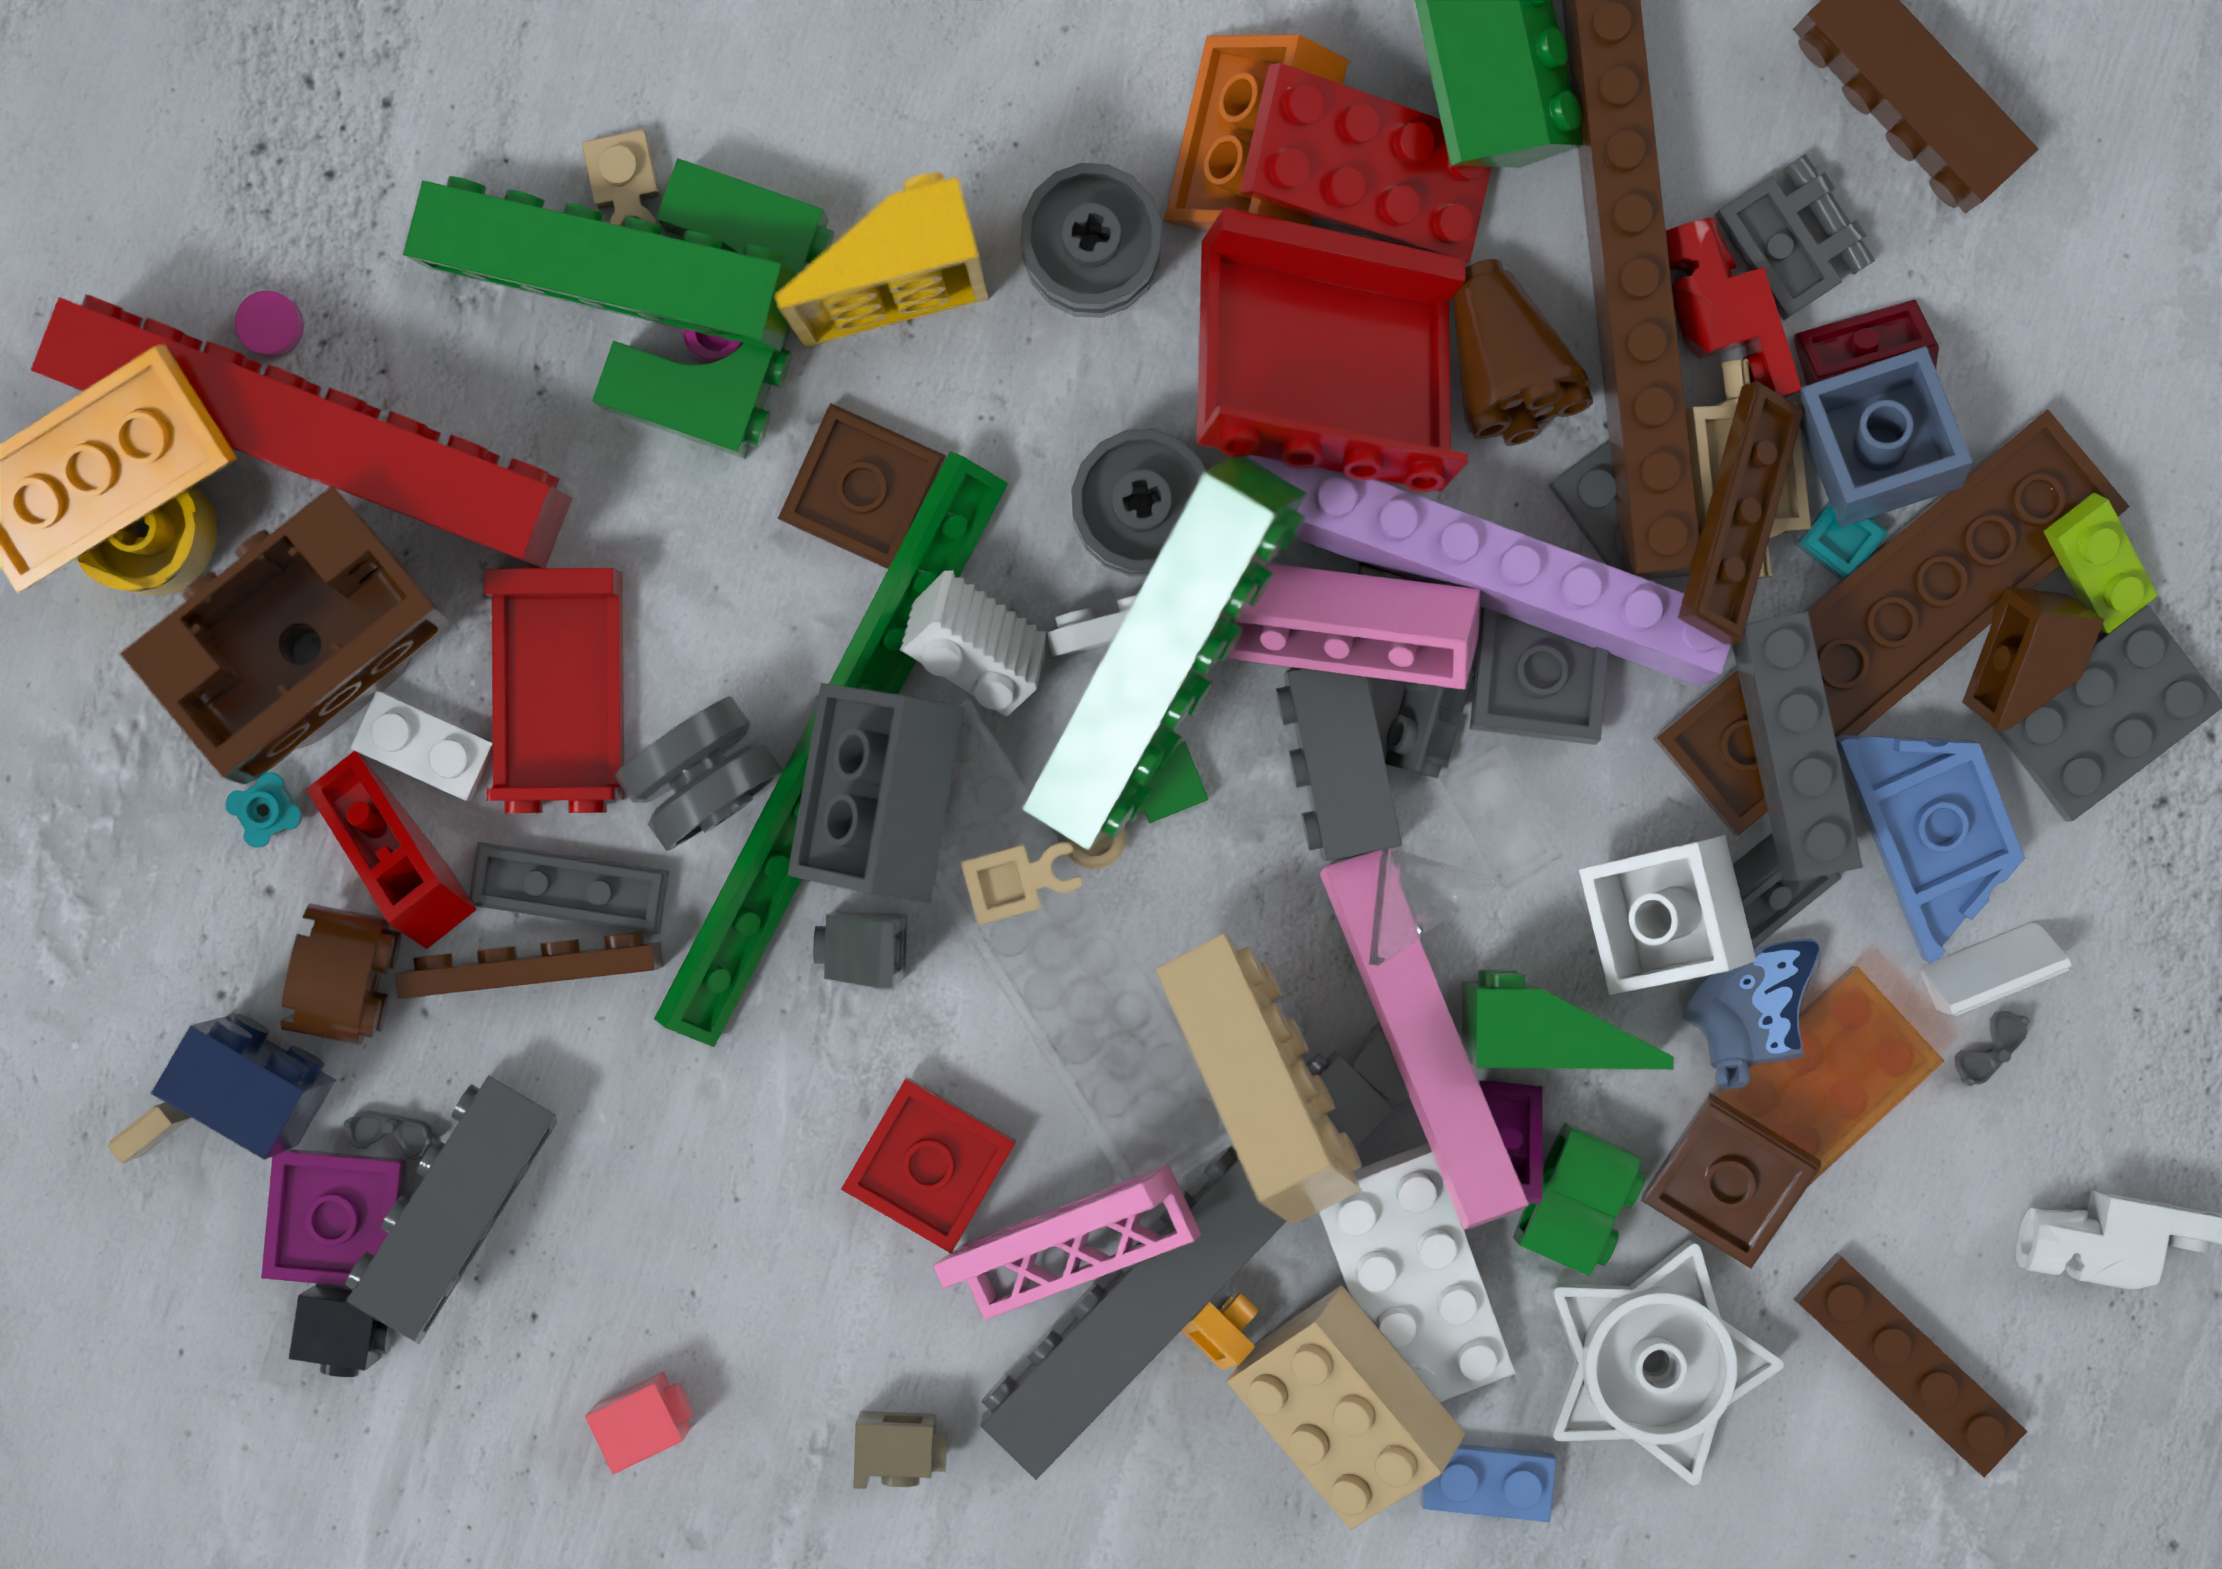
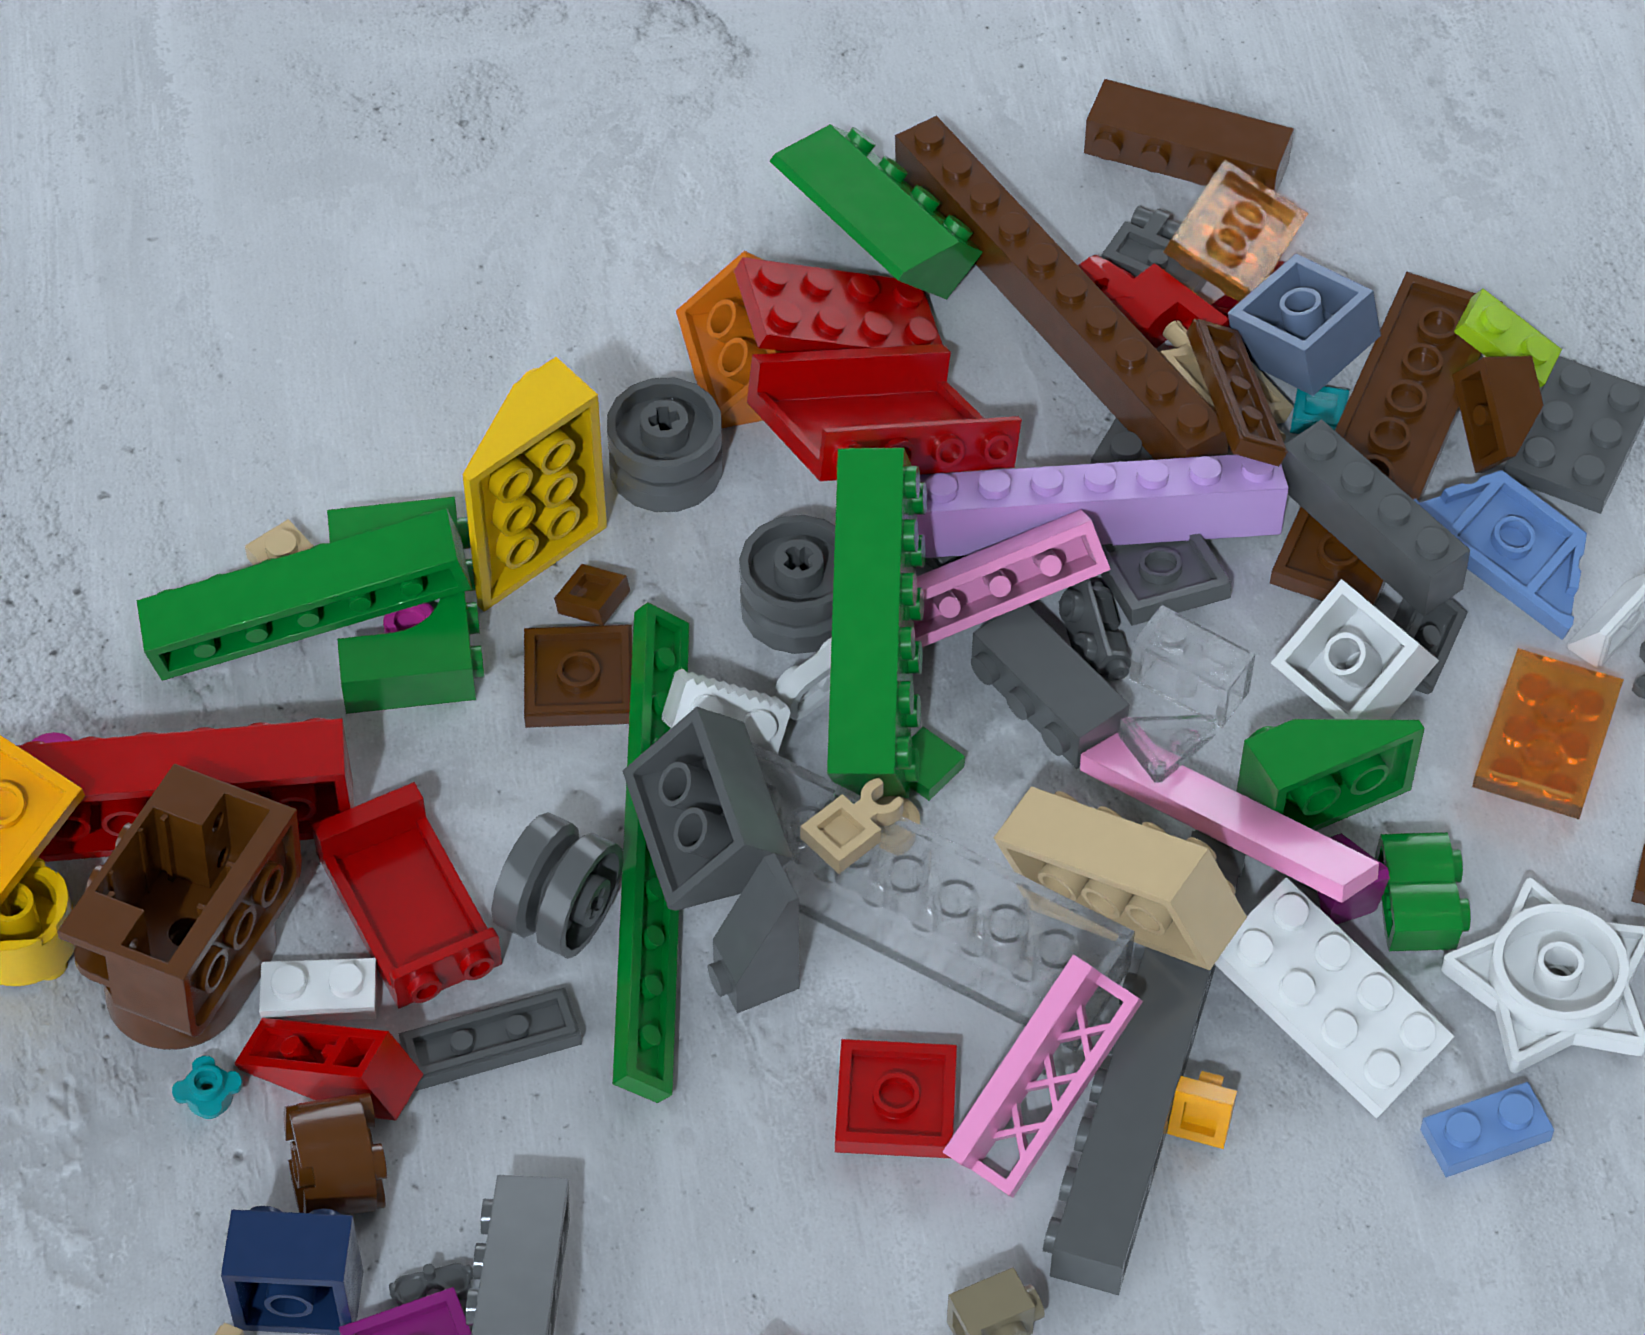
camera: 30 degrees left, 35 degrees down
(502, 968) = (489, 1100): reddish brown plate -> none
(920, 398) = (592, 594): none -> reddish brown plate
(1347, 1408) = (1336, 1099): tan brick -> none
(1511, 359) = (1019, 383): reddish brown cone -> none
(1731, 1180) = (1524, 826): reddish brown tile -> none
(1754, 1010) = (1463, 710): sand blue arm -> none
(1884, 265) = (1235, 232): none -> clear orange plate

